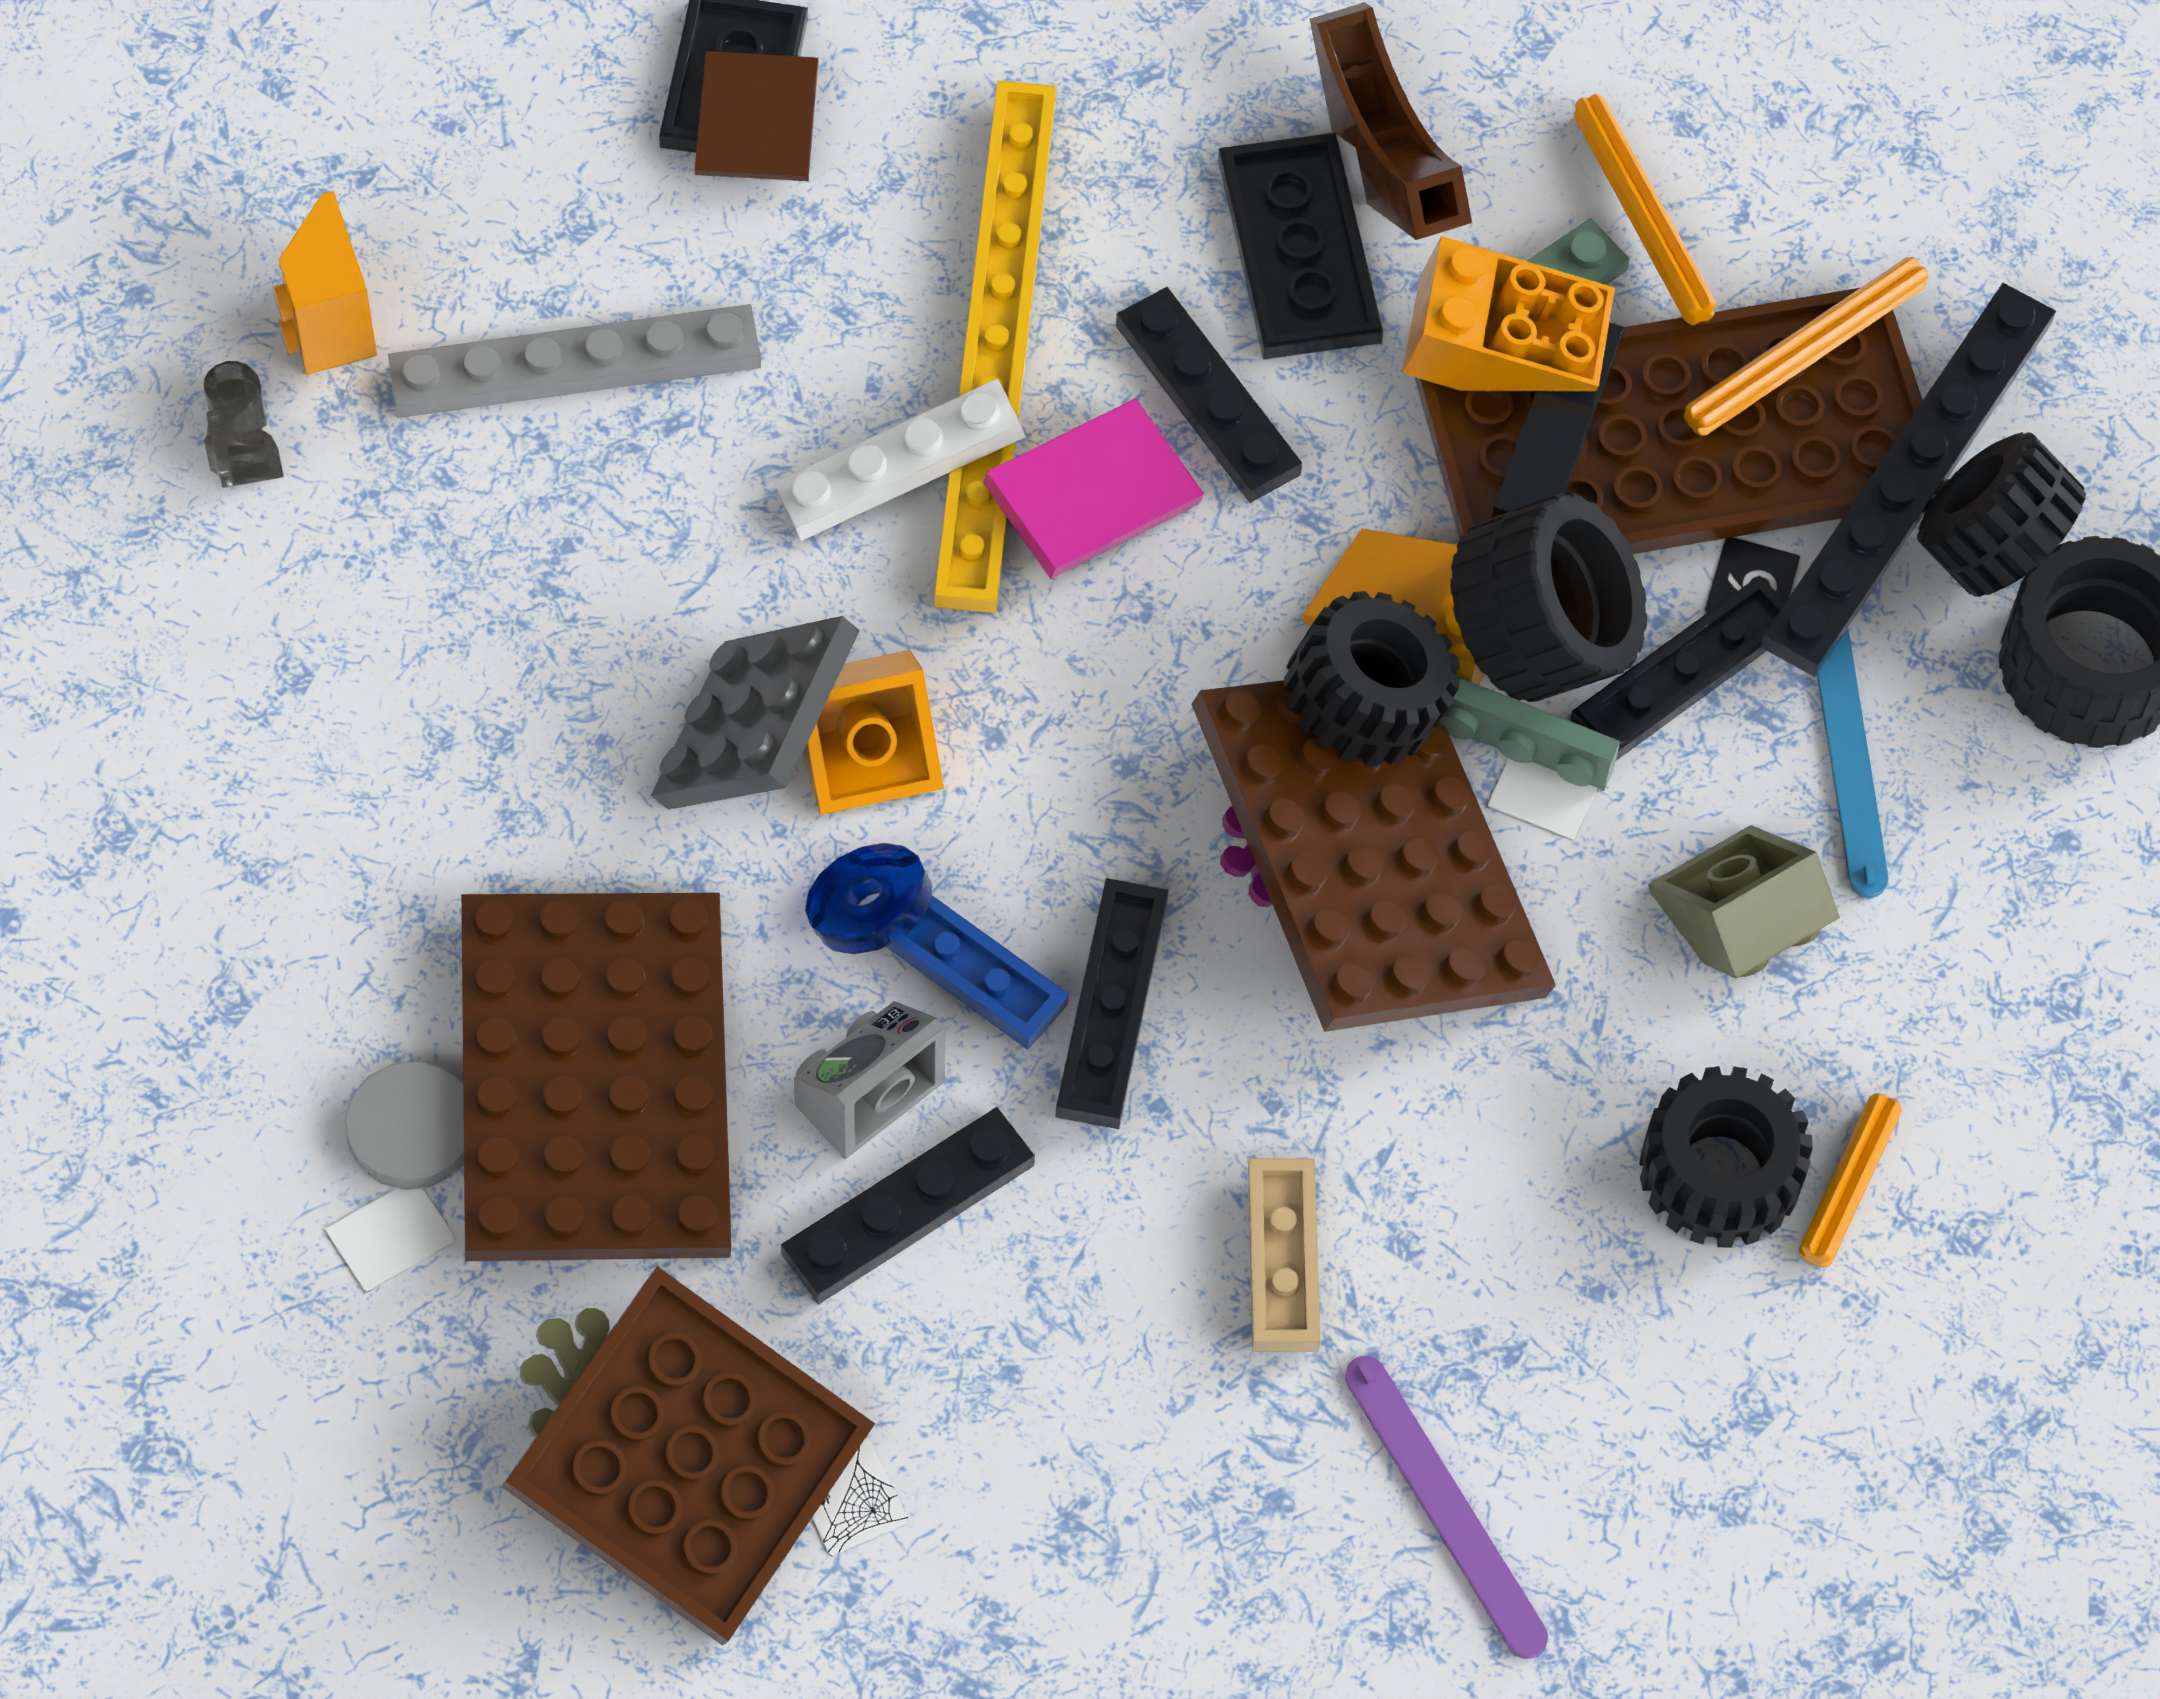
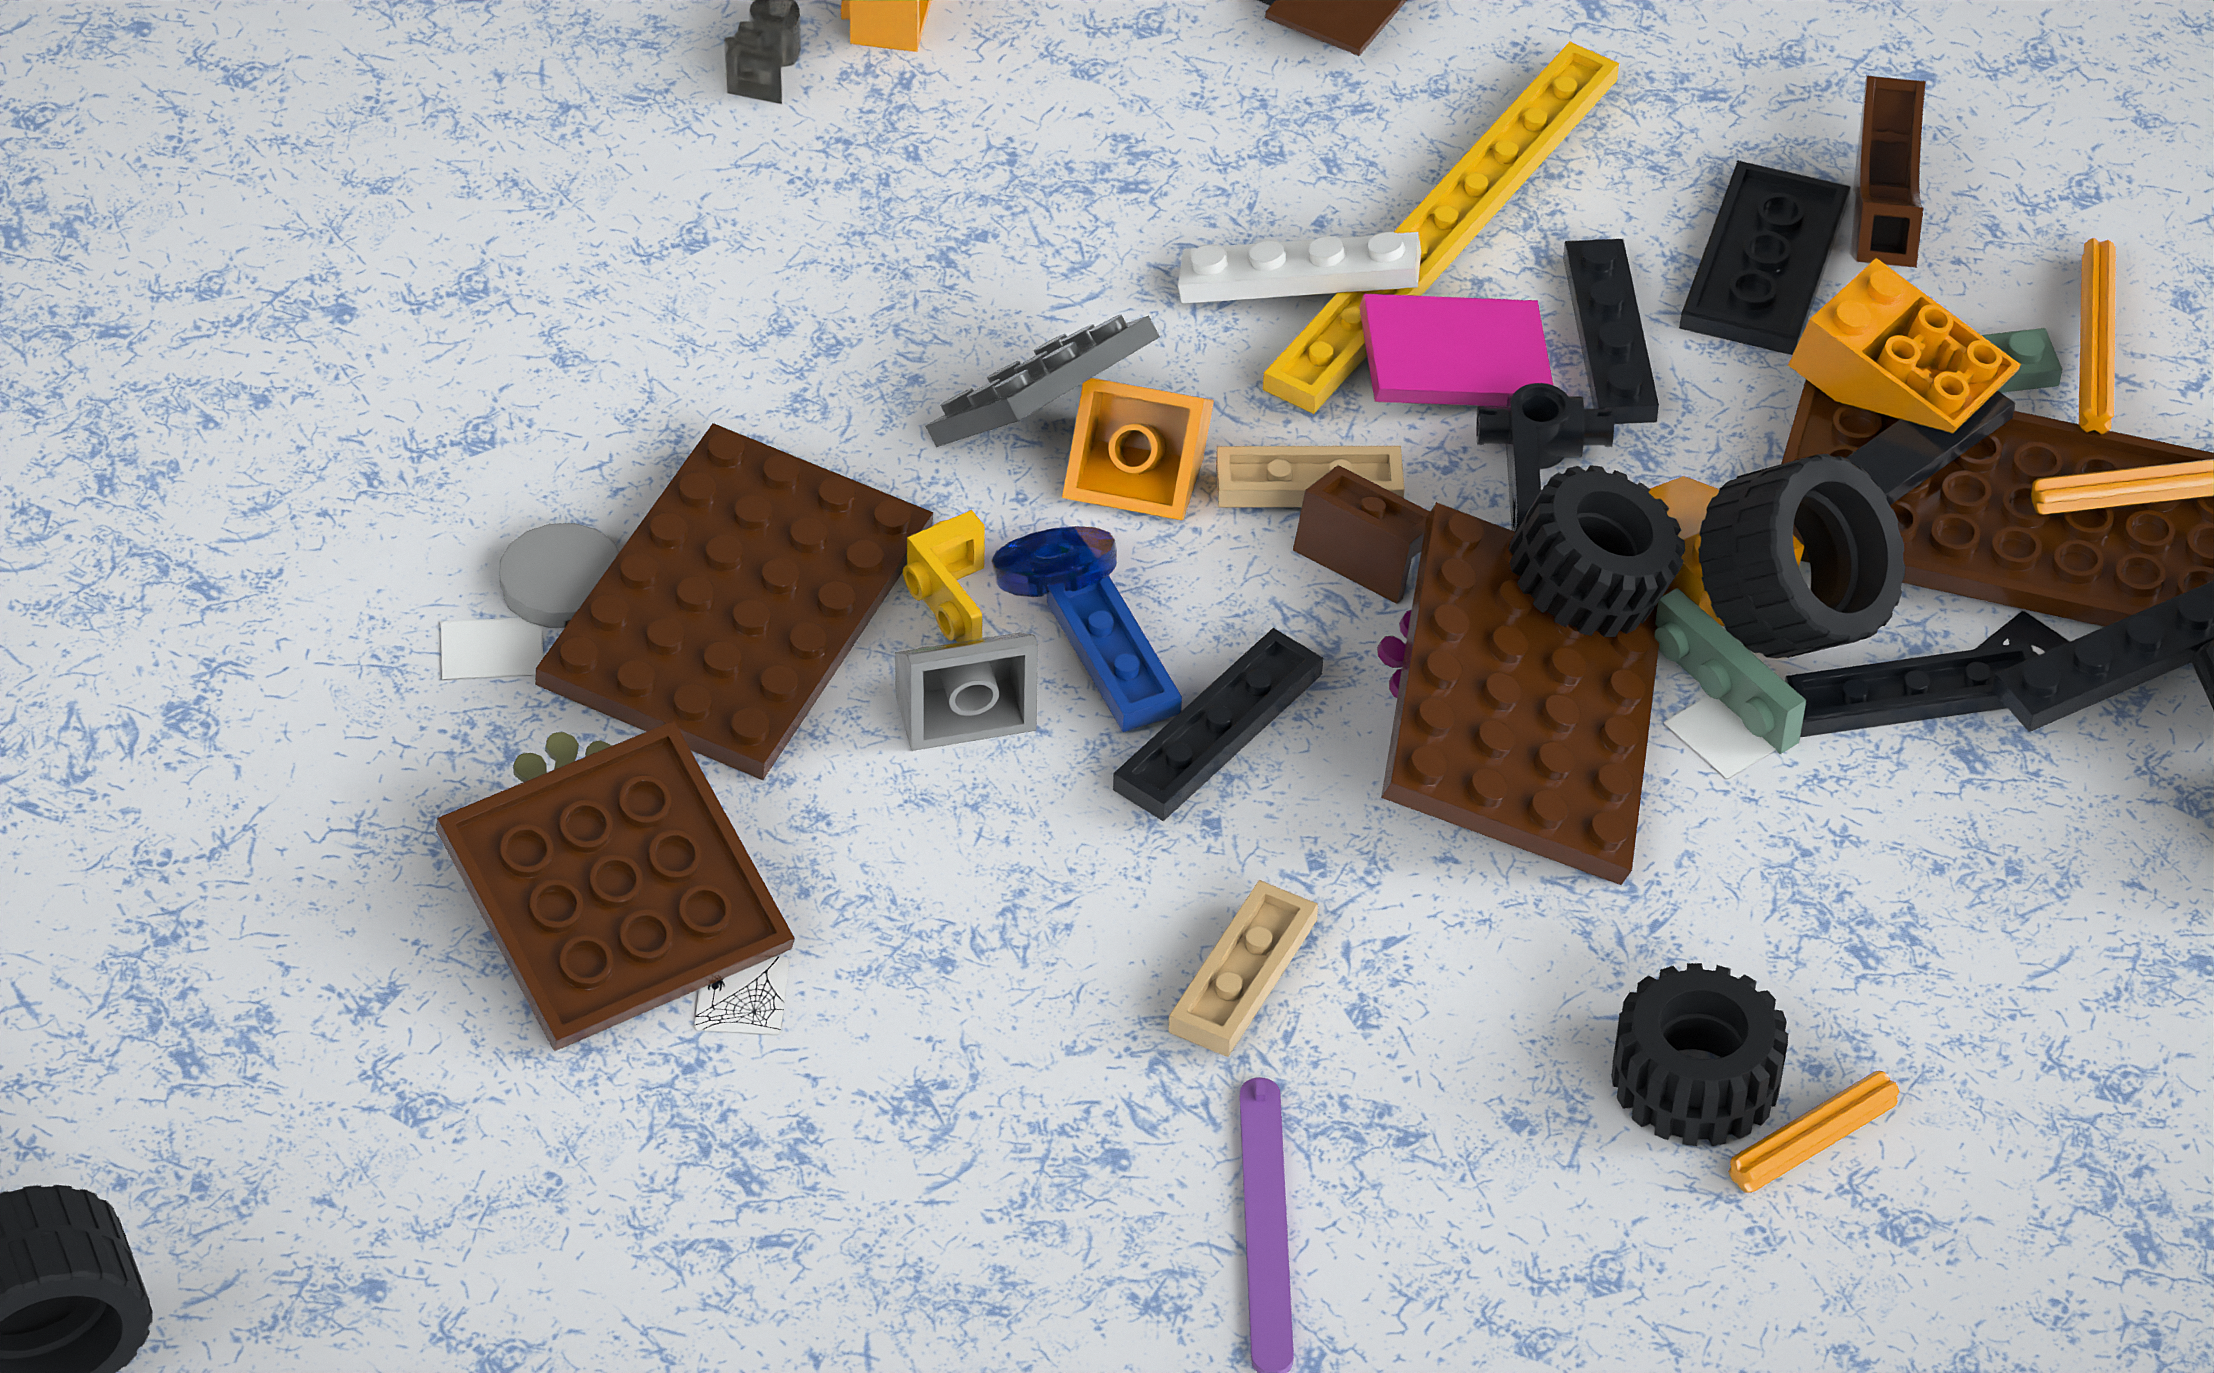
camera: 30 degrees right, 15 degrees down
(574, 360) = (1077, 110): light grey plate -> none
(756, 937) = (935, 564): none -> yellow bracket
(907, 1205) = (939, 800): black plate -> none
(1037, 689) = (1282, 473): none -> tan plate
(1127, 732) = (1360, 531): none -> reddish brown panel
(1215, 564) = (1539, 431): none -> black piece
(1747, 900) = (1854, 879): olive slope -> none
(1852, 772) = (2029, 821): dark azure piece -> none

